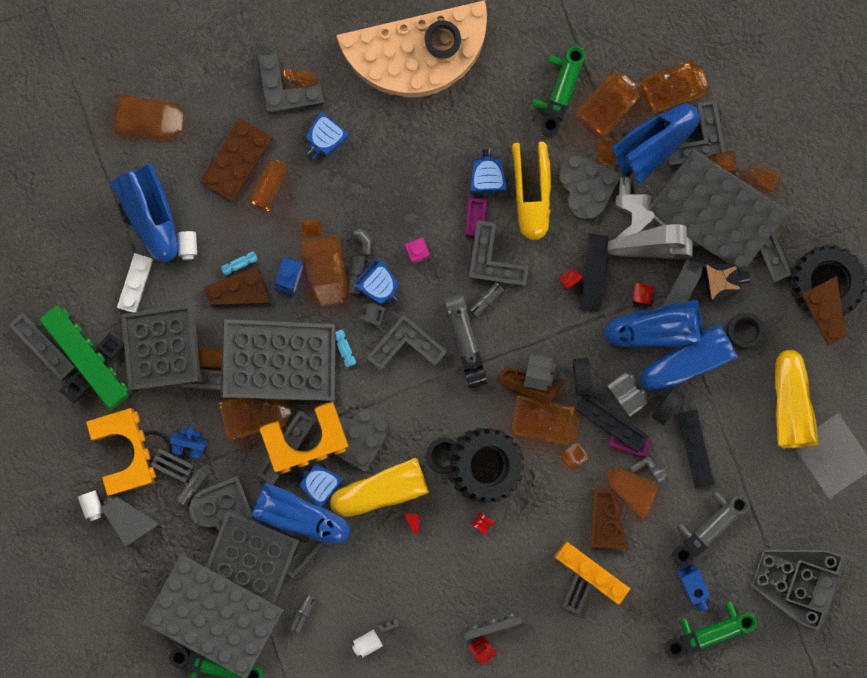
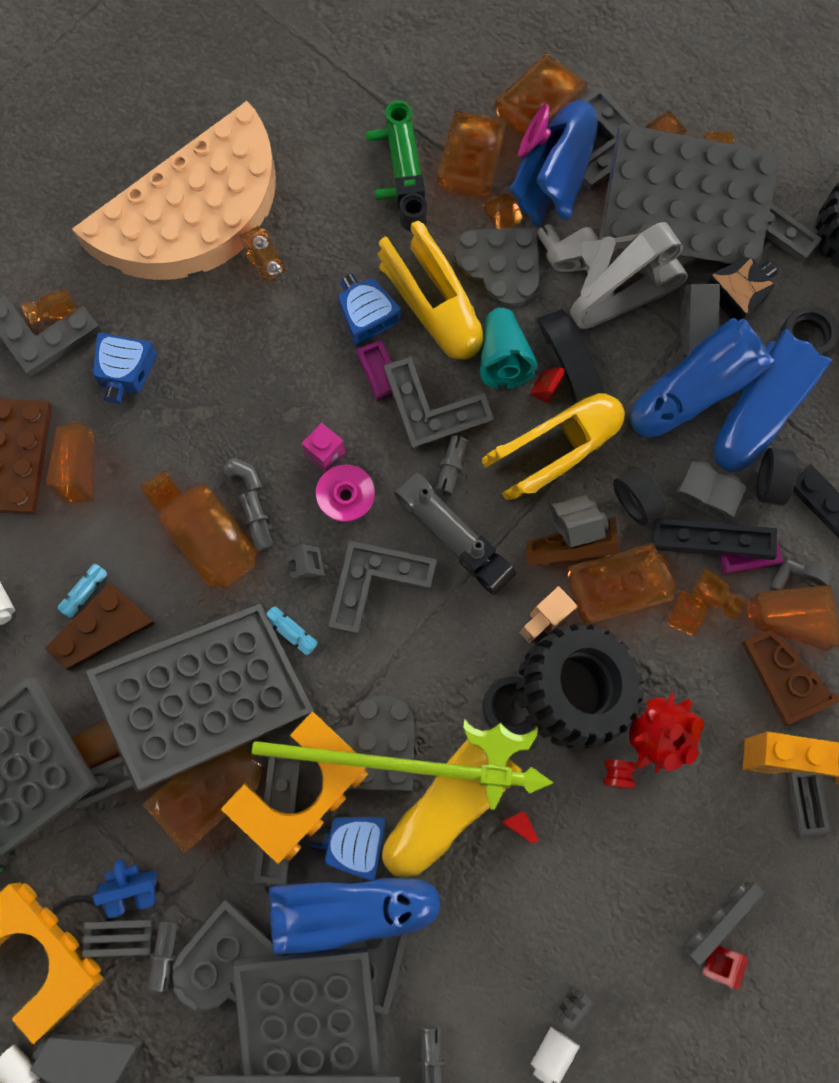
camera: 30 degrees left, 10 degrees down
(288, 276) = (160, 567): blue torso -> none
(377, 283) = (292, 516): torso -> none
(420, 275) = (341, 480): none -> dark pink dish
(420, 471) = (496, 743): none -> lime piece
(442, 25) = (211, 144): black tyre -> none
(442, 107) = (262, 253): none -> clear orange piece
(491, 416) = (548, 614): none -> light nougat piece
(517, 515) = (666, 734): none -> red brick
(555, 246) = (505, 352): none -> teal cone
(579, 319) = (585, 425): none -> yellow piece
(593, 452) = (715, 593): none -> clear orange plate
(642, 294) = (649, 357): red slope -> none
(649, 118) = (536, 132): none -> dark pink dish

